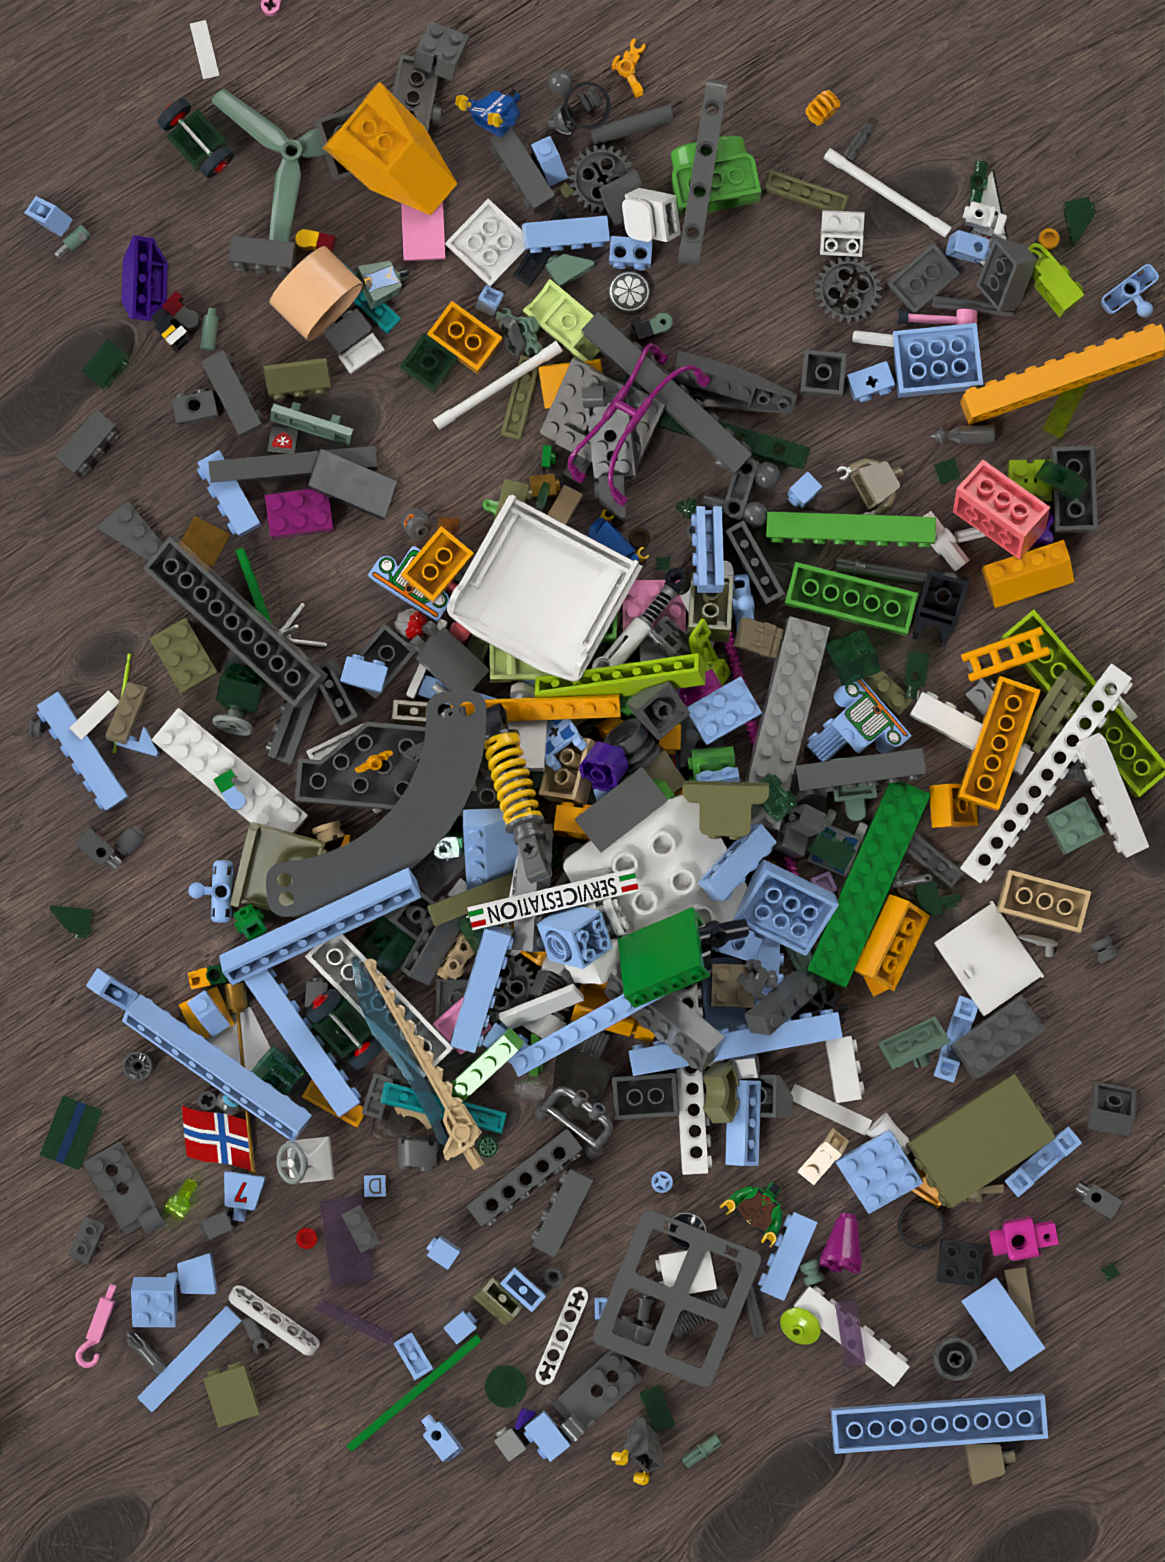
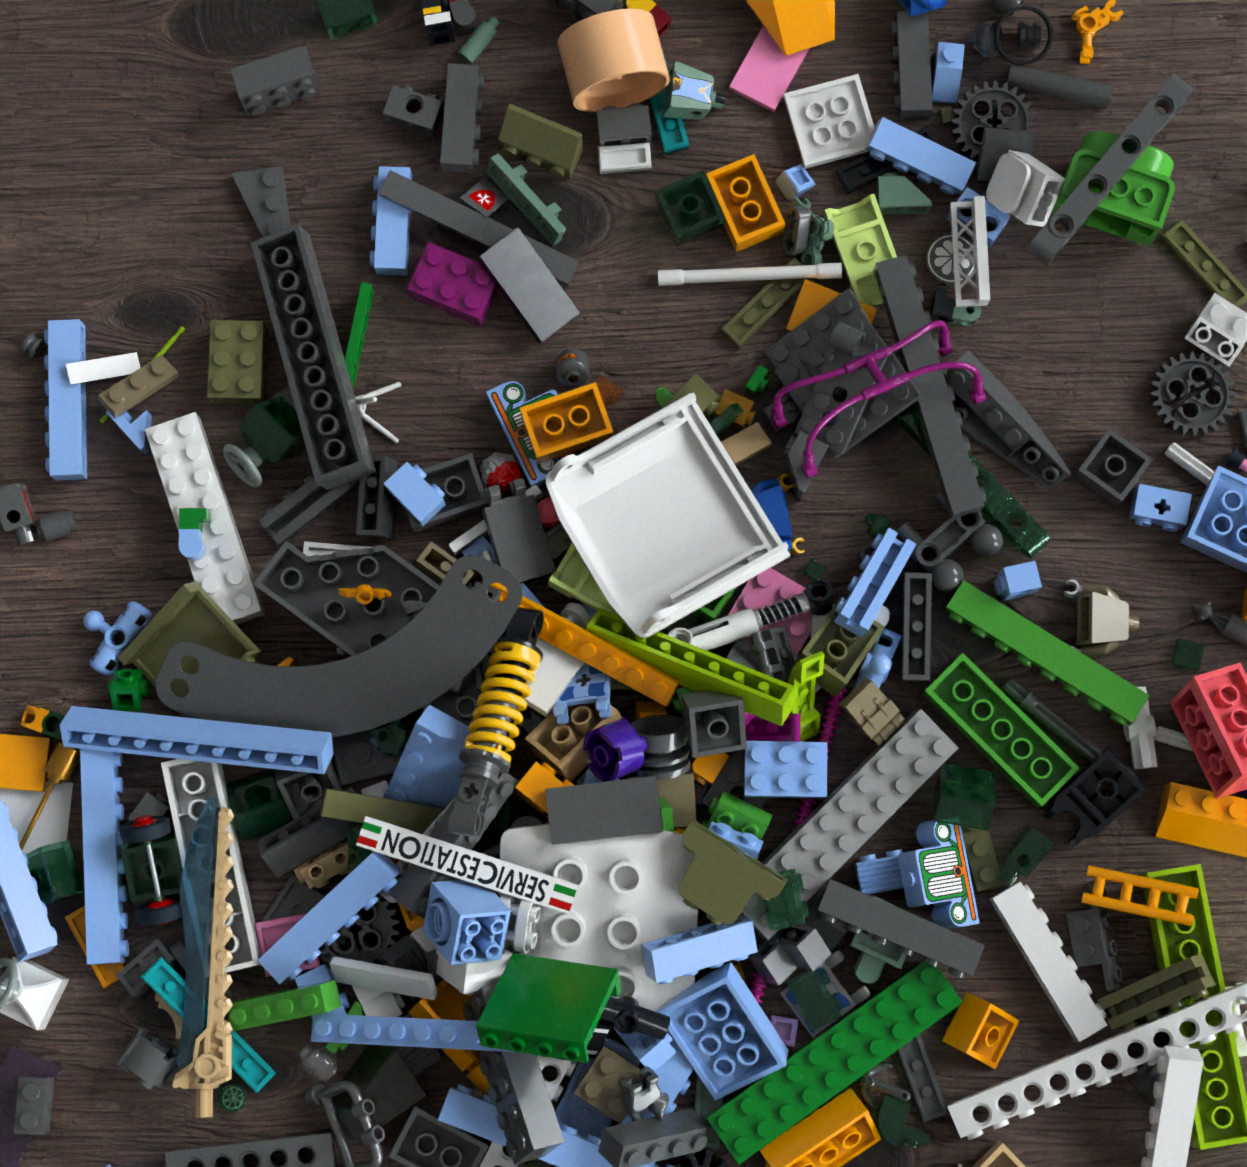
camera: 30 degrees right, 5 degrees down
(205, 540) = (338, 256): pearl gold sticker -> none
(208, 1013) = (19, 762): light blue slope -> none
(329, 832) = (273, 643): tan wheel -> none
(374, 1185) = (82, 1065): light blue tile -> none
(639, 538) = (805, 527): dark brown tile -> none
(647, 278) = (980, 249): none -> white fence
(998, 743) = (1074, 992): light orange brick -> none
(1073, 825) = (1104, 1136): sand green brick -> none

